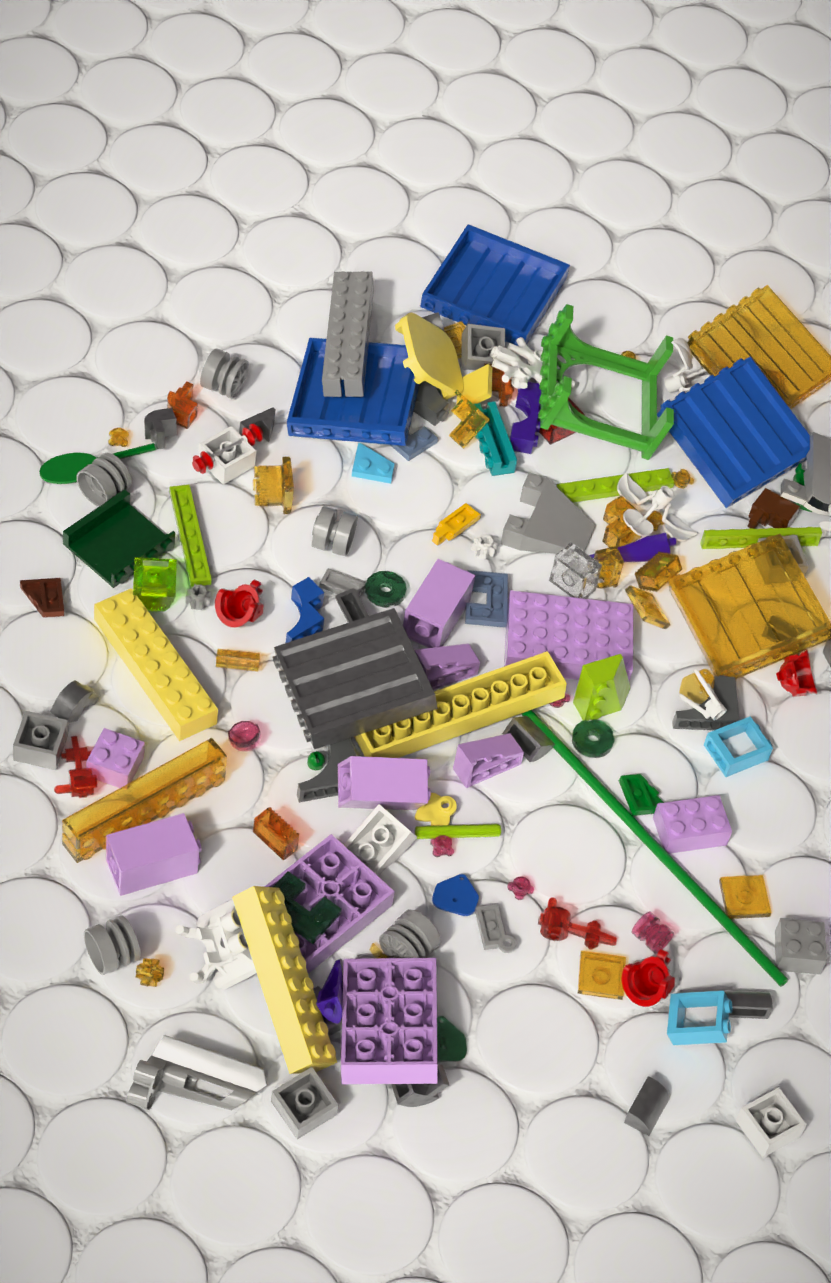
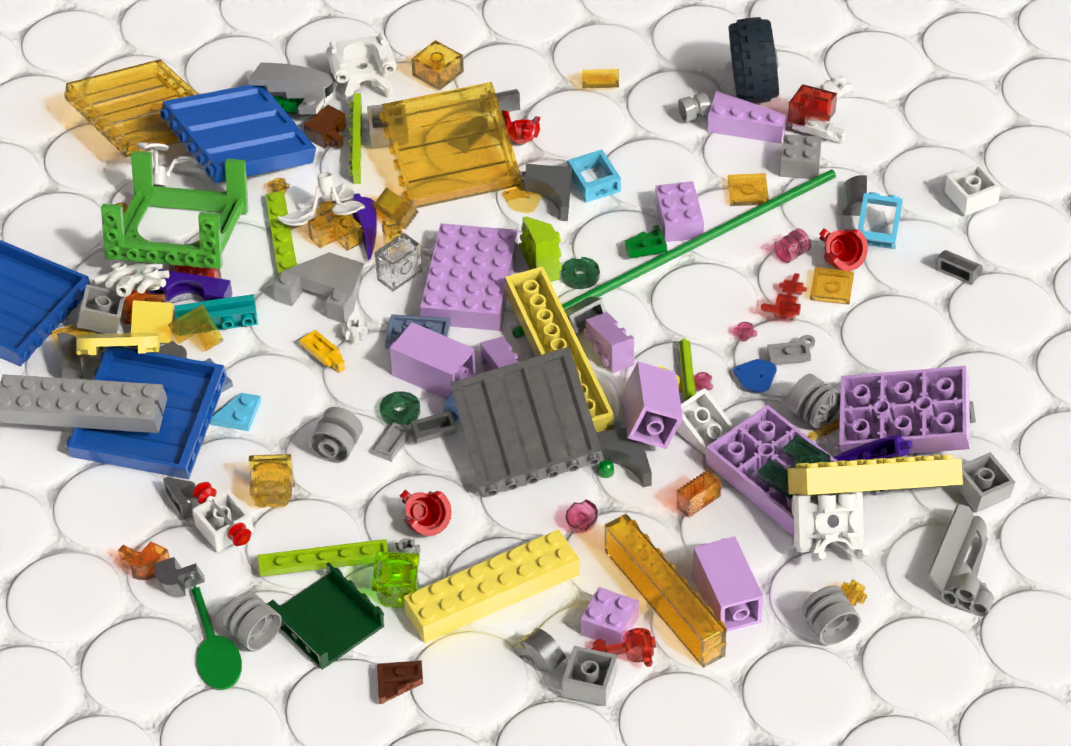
camera: 75 degrees left, 5 degrees down
(118, 437) = (181, 618): clear yellow plate -> none
(224, 373) = (110, 517): light grey wheel -> none
(237, 660) = (487, 521): clear yellow axle -> none
(308, 599) = (444, 465): blue arch -> none
(647, 607) = (439, 218): clear yellow tile -> none
(714, 707) = (562, 177): white plant -> none

